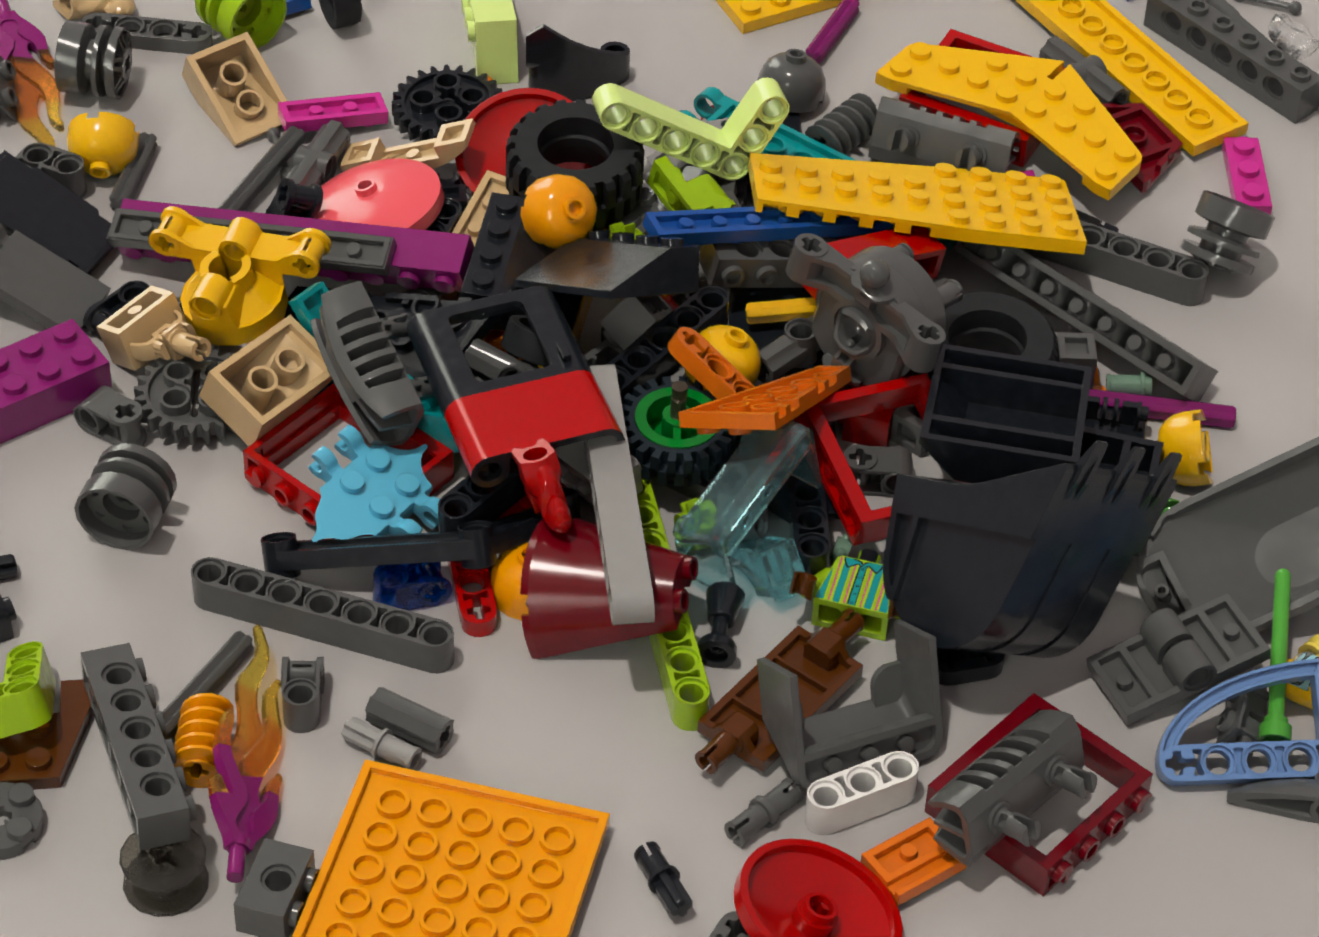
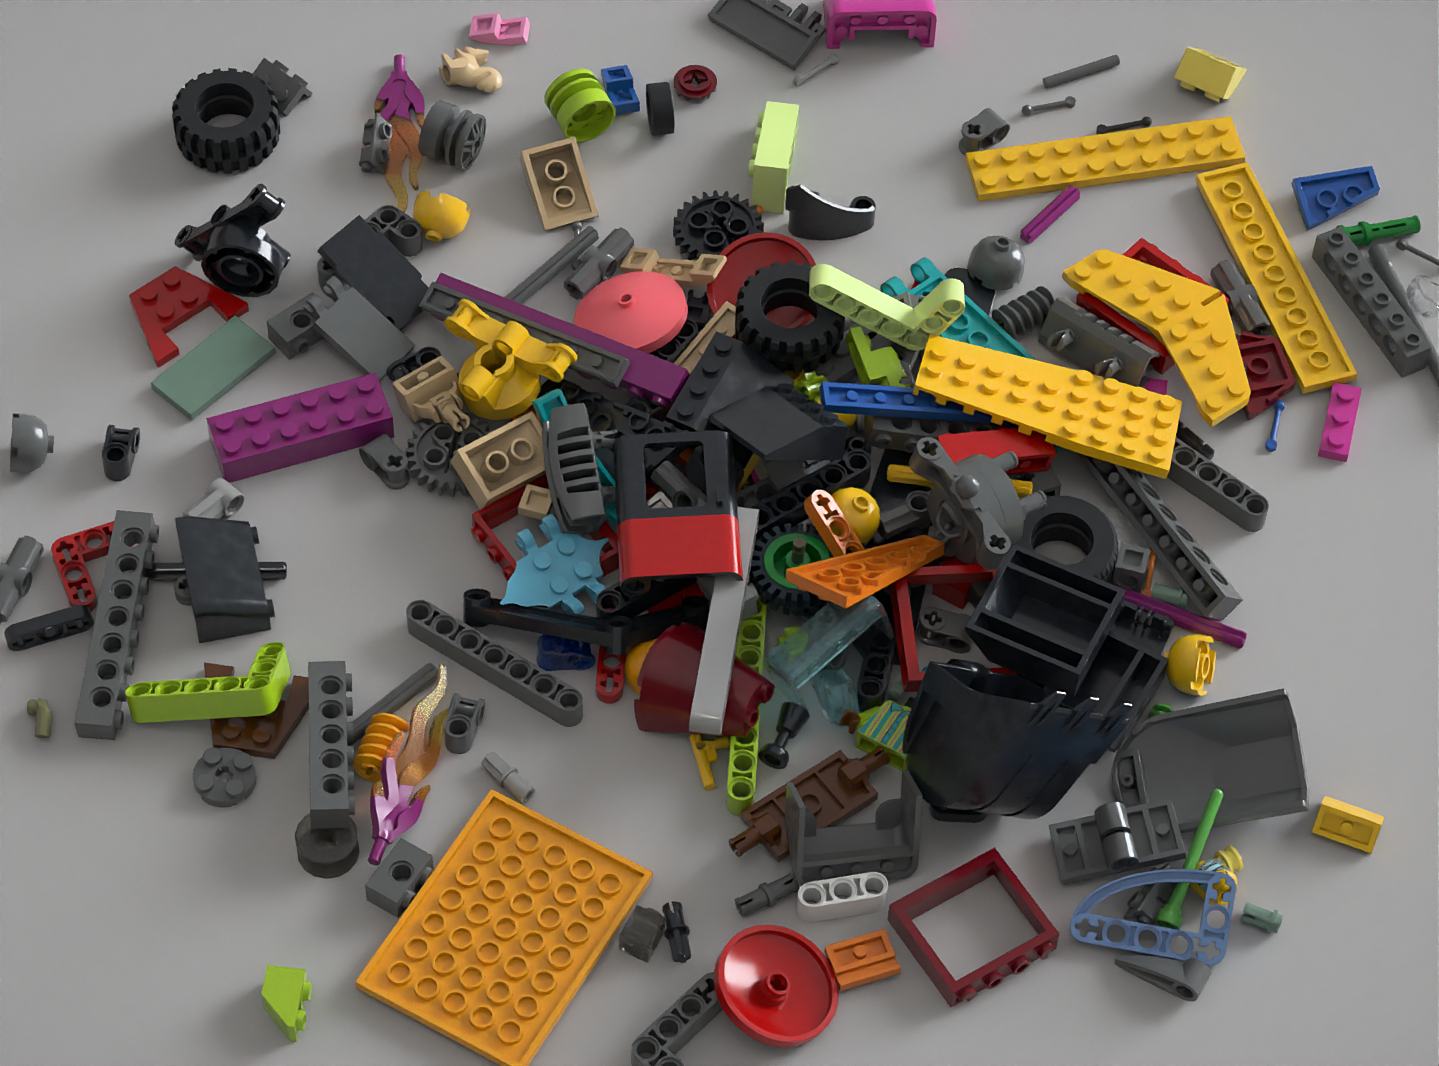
camera: 15 degrees right, 10 degrees up
(125, 496) = (376, 535): dark grey wheel -> none
(134, 171) = (460, 241): dark grey axle -> none
(185, 36) = (506, 108): dark grey beam -> none
(296, 199) = (569, 303): black piece -> none
(323, 420) = (535, 502): none -> tan plate
(350, 110) = (631, 217): dark pink plate -> none
(409, 720) = (533, 763): dark grey axle -> none
(542, 483) = (670, 602): red animal -> none
(558, 210) = (759, 361): light orange cylinder -> none
(619, 889) = (642, 933): none -> clear smoke brick
(629, 669) = (706, 756): none -> yellow hose
(1010, 784) = (943, 922): dark grey piece -> none
(1178, 213) = (1271, 444): none -> blue hinge
(1227, 232) = (1293, 478): dark grey wheel -> none

